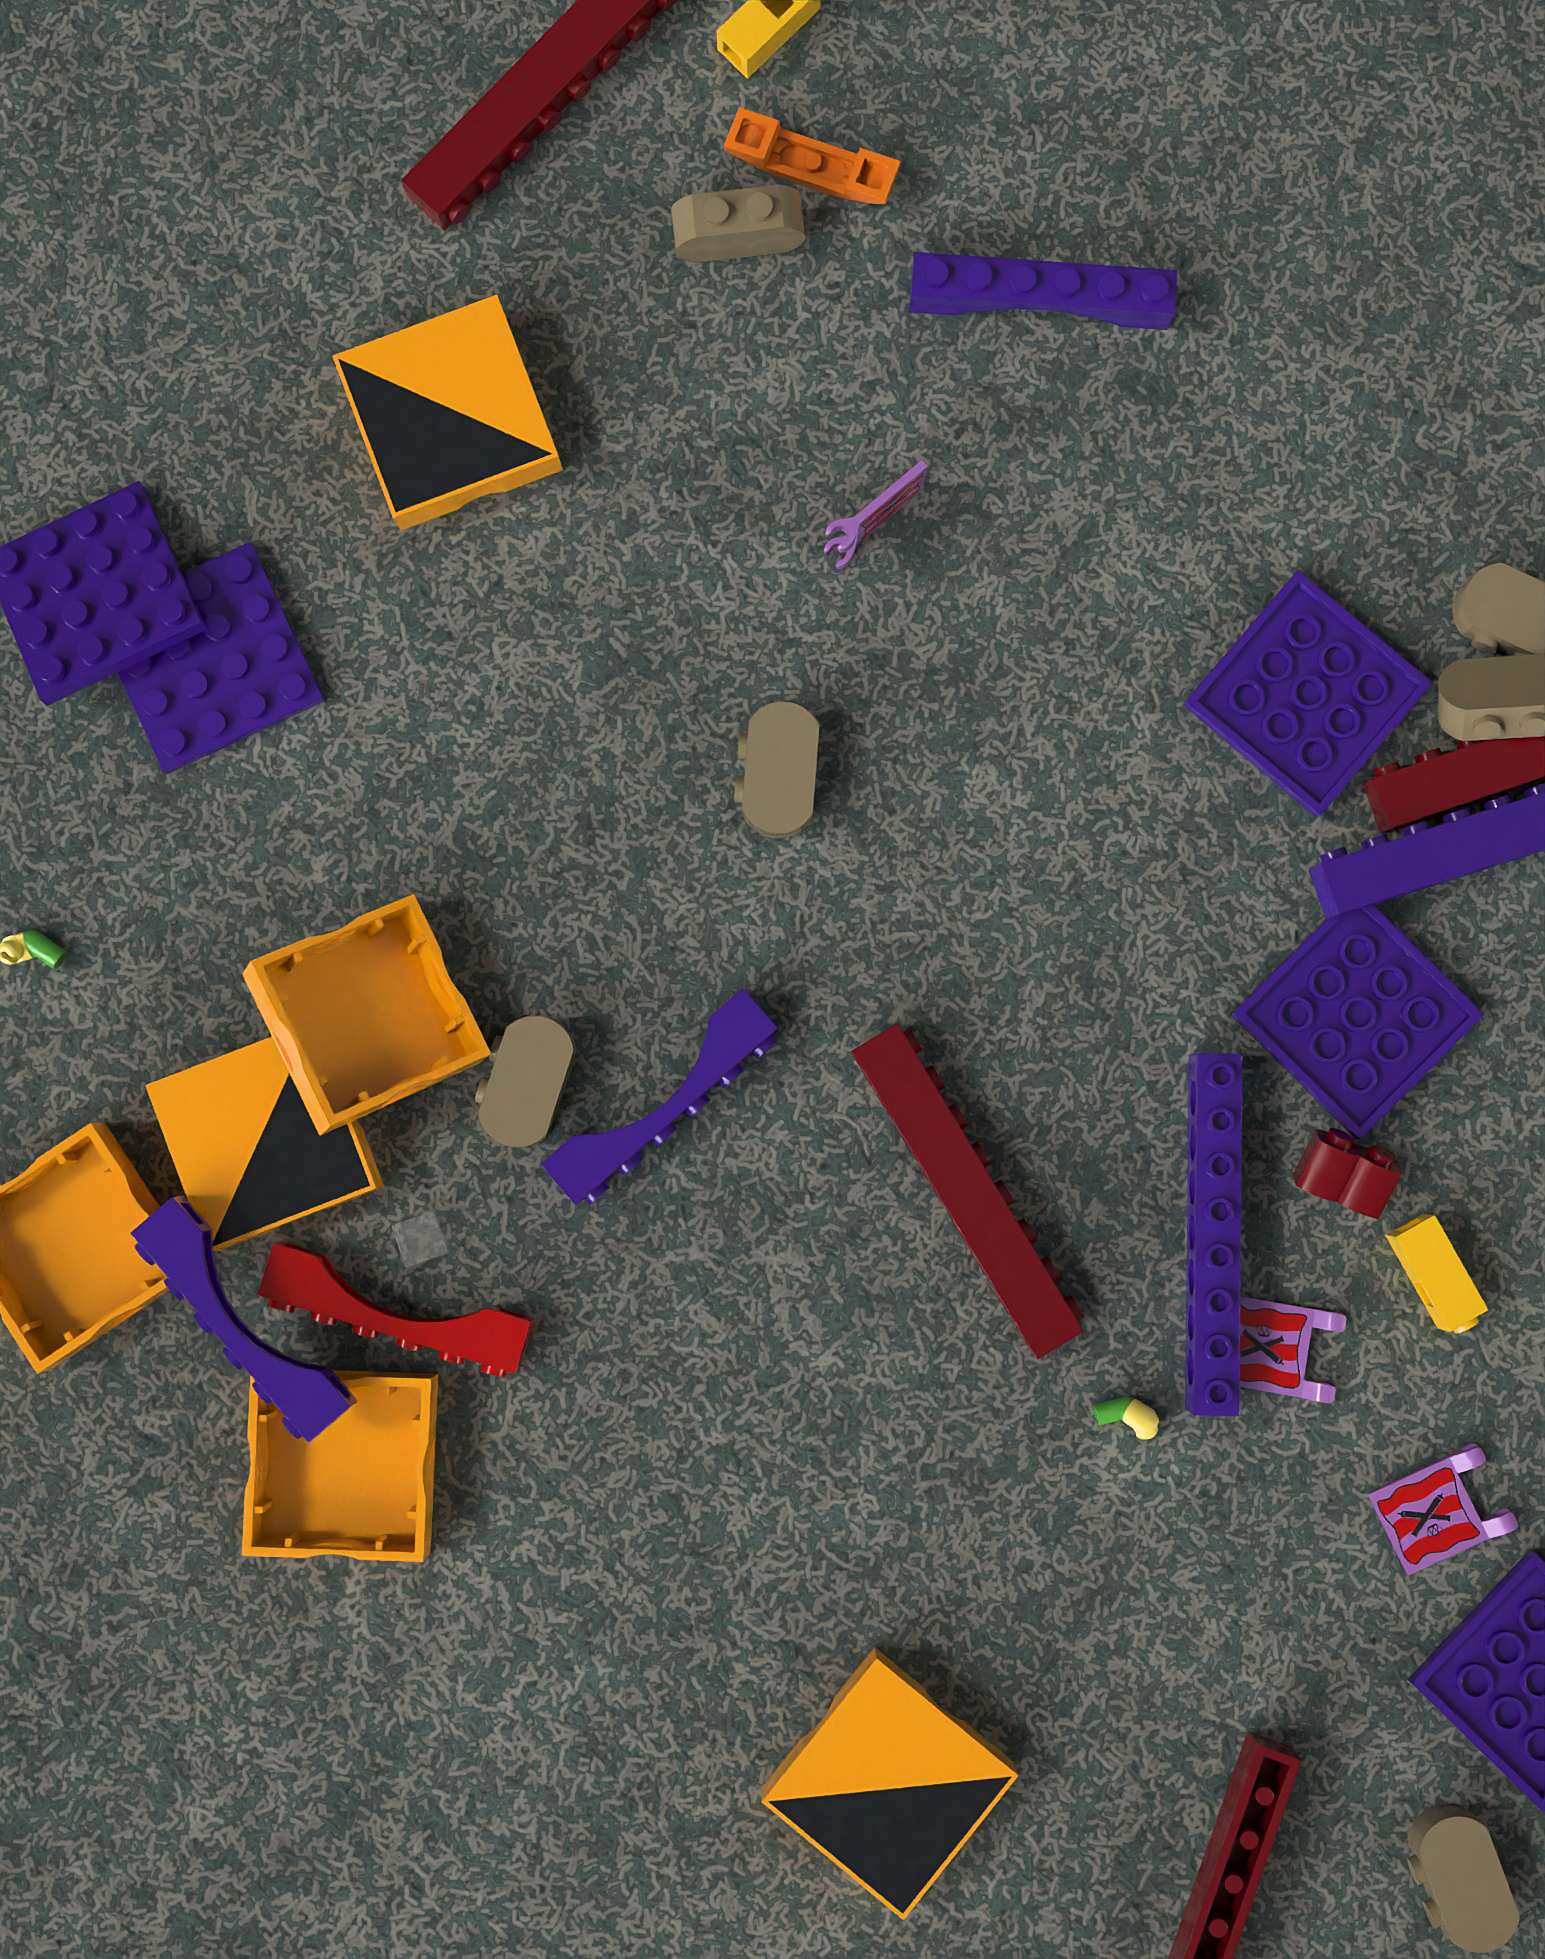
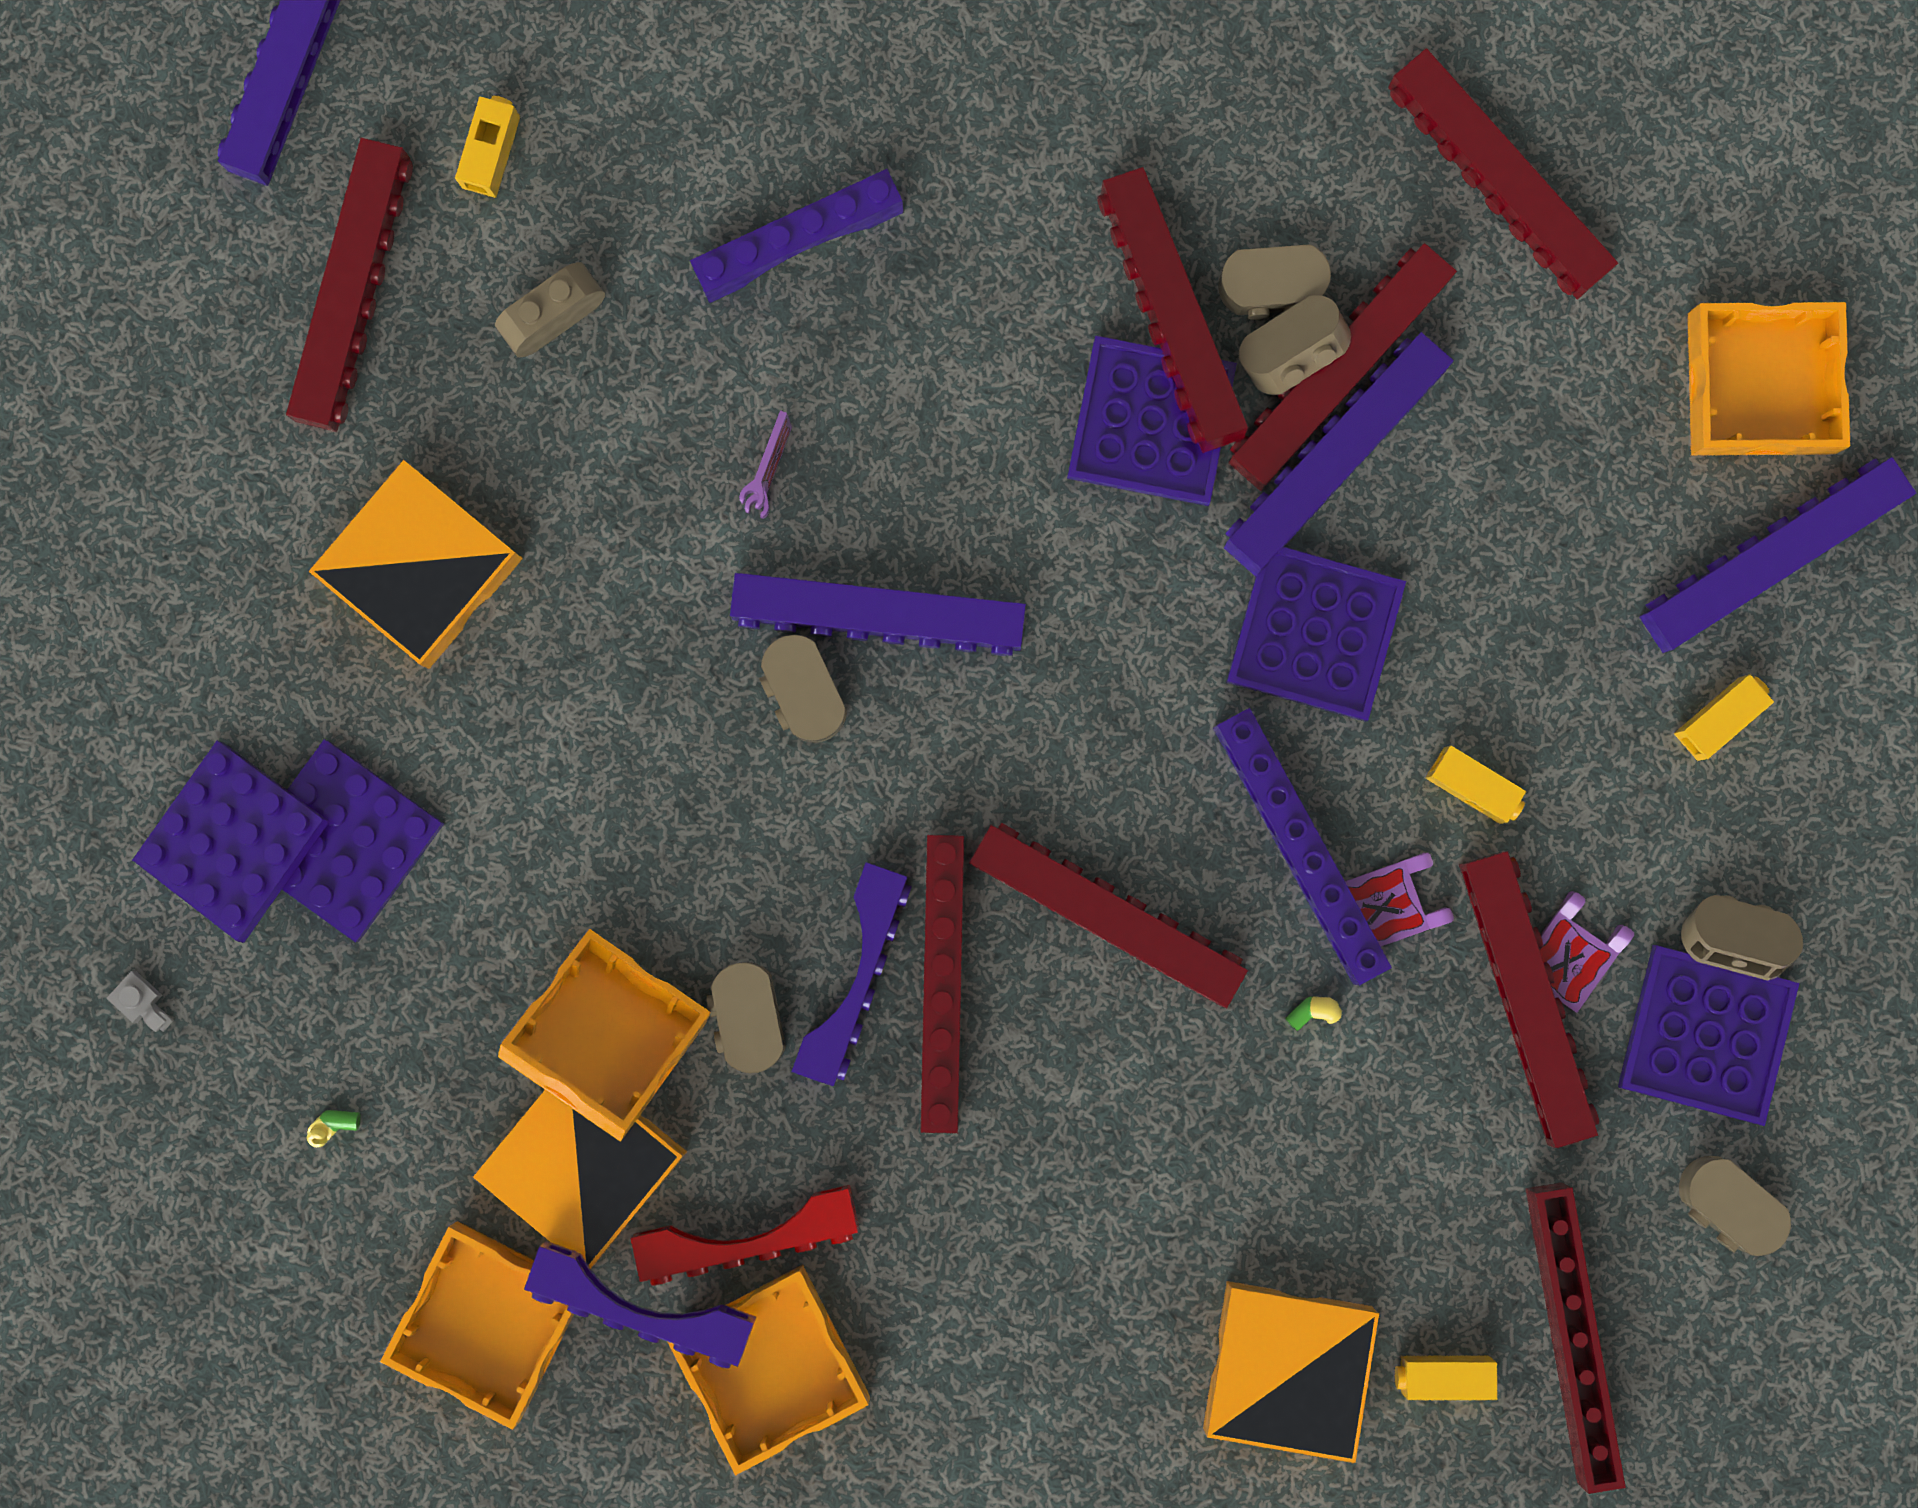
camera: 30 degrees left, 0 degrees up
(420, 1238) = (735, 1174): clear plate -> none
(751, 1162) = (942, 984): none -> dark red brick
(810, 162) = (576, 234): orange slope -> none
(902, 733) = (877, 612): none -> dark purple brick
(1052, 1885) = (1447, 1377): none -> yellow brick
(1348, 1172) = (1372, 749): dark red brick -> none
(1366, 1533) = (1529, 999): none -> dark red brick
(1396, 588) = (1172, 310): none -> dark red brick

